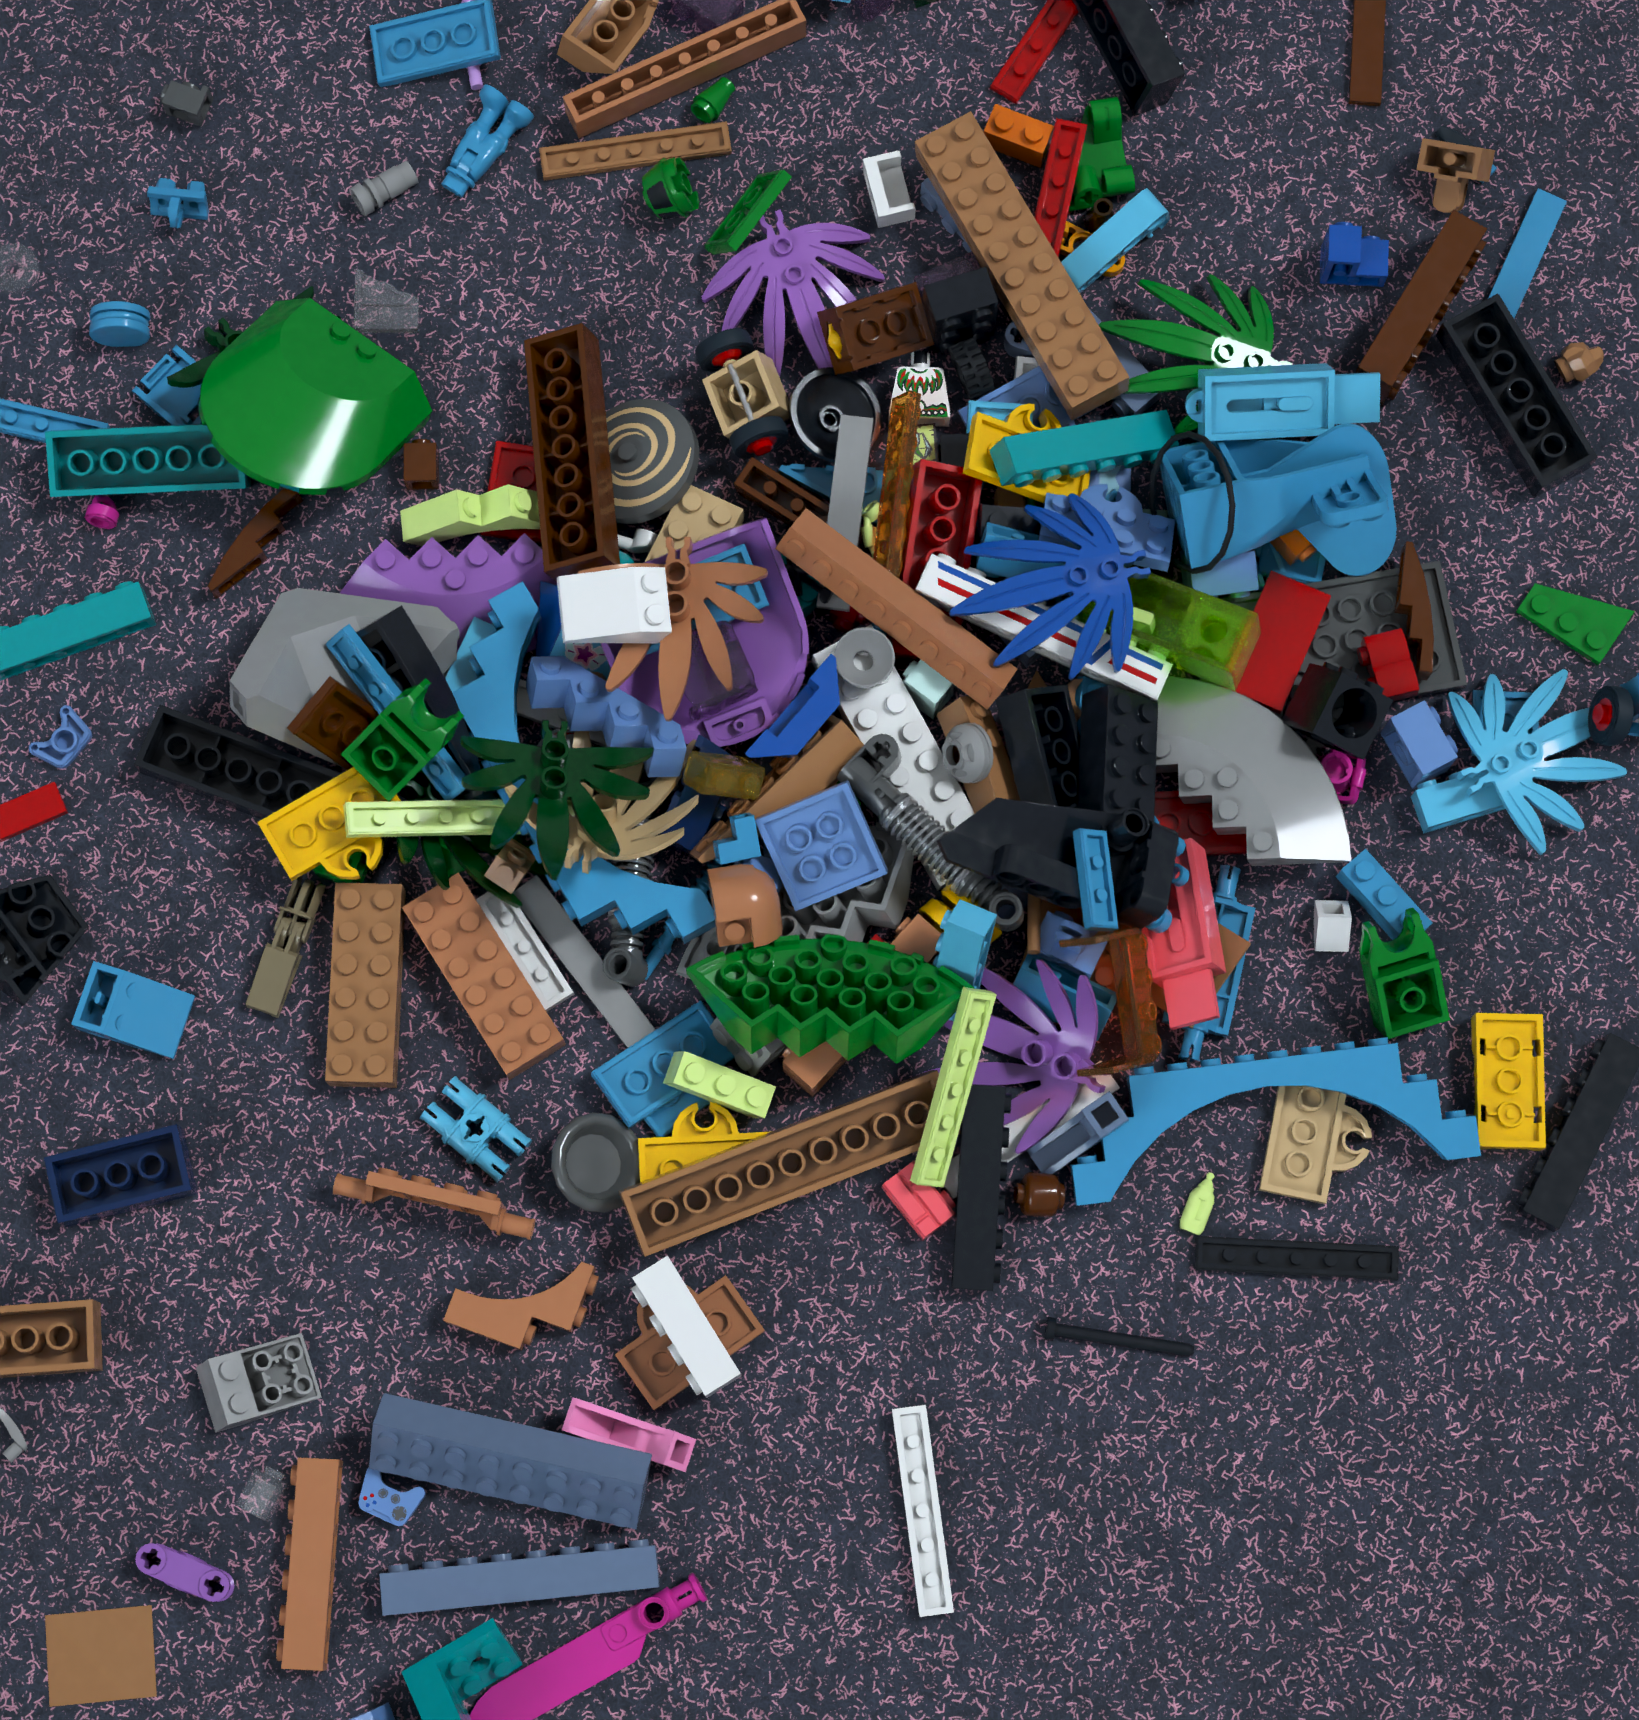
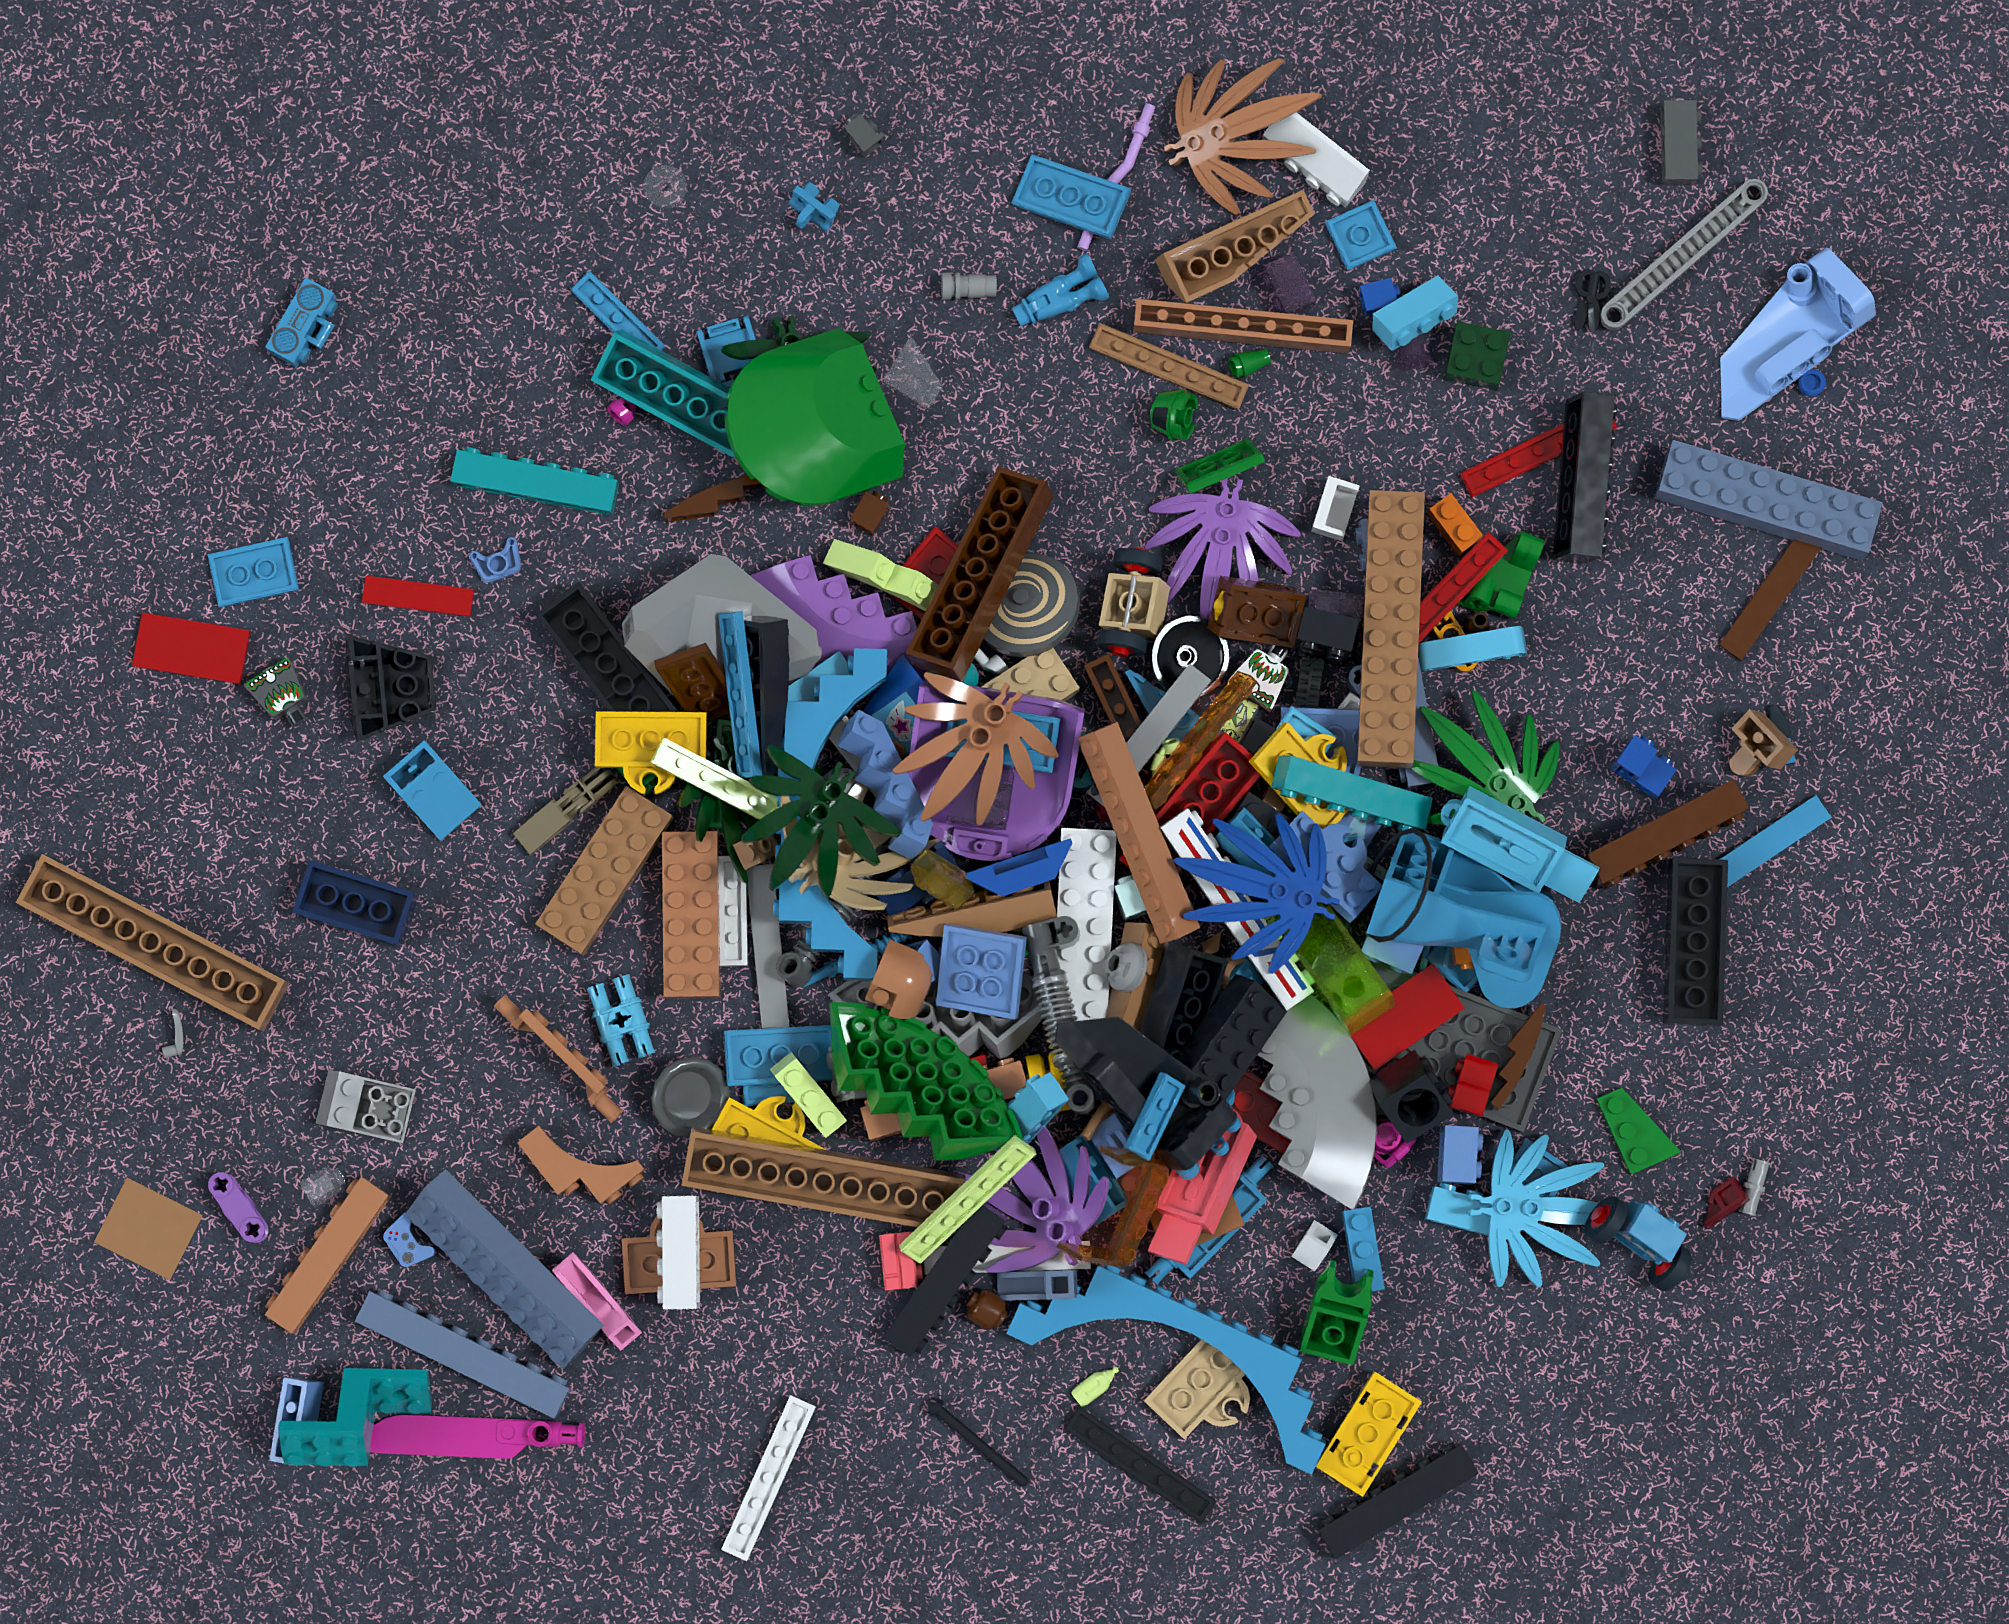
camera: 30 degrees right, 5 degrees up
(119, 324) = (715, 277): dark azure head -> none
(400, 741) = (727, 718): green brick -> none
(615, 606) = (935, 714): white slope -> none
(743, 843) = (924, 936): dark azure piece -> none
(867, 641) = (1109, 852): light grey piece -> none
(1143, 621) = (1312, 944): yellowish green tile -> none
(1579, 361) = (1761, 944): medium nougat rock -> none

